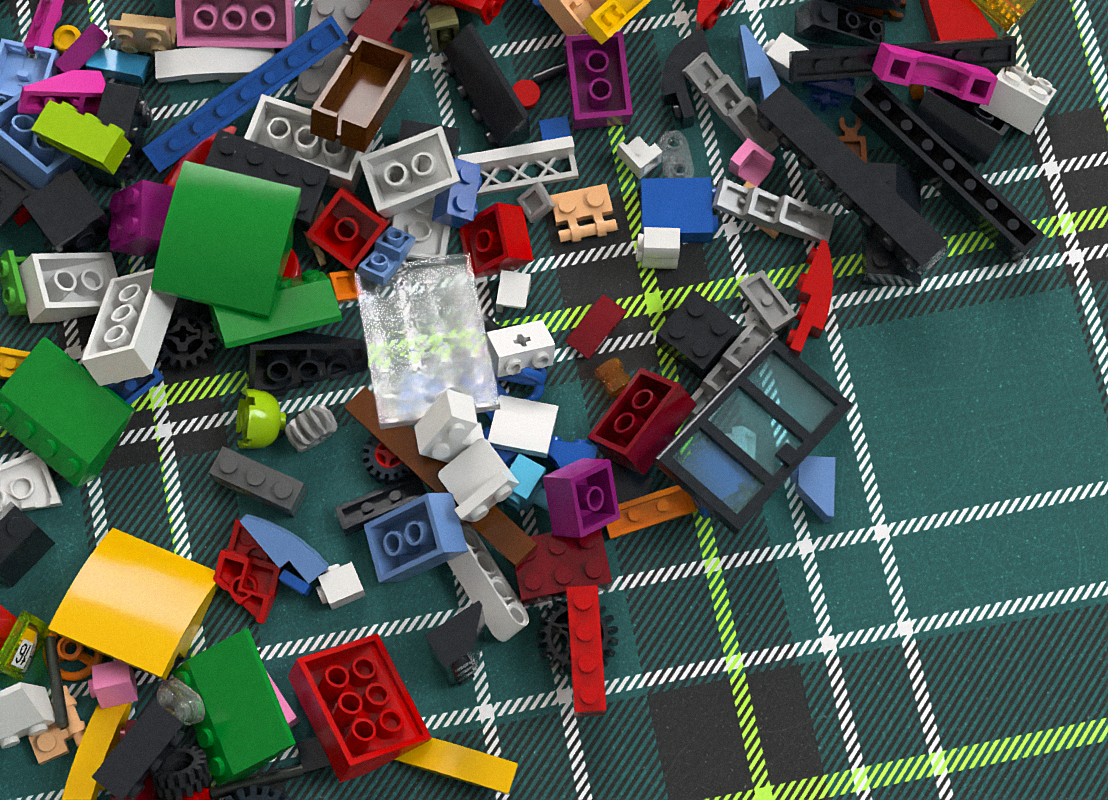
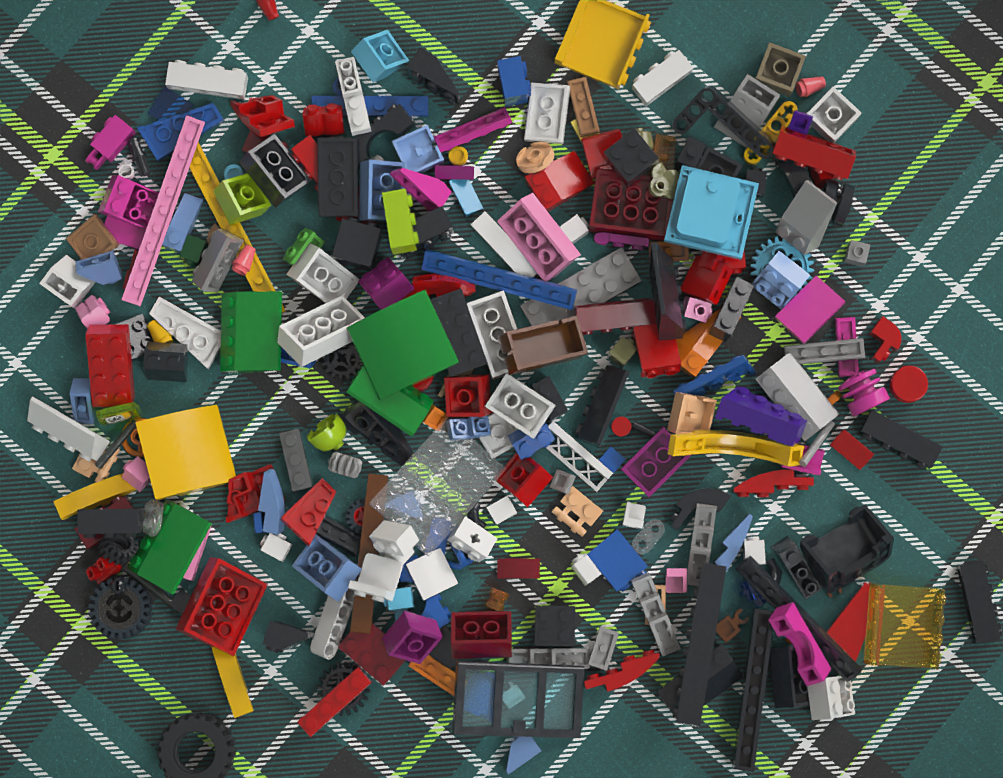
camera: 55 degrees right, 10 degrees up
(144, 33) = (494, 194): tan bracket -> none
(331, 512) = (309, 511): none -> red wing

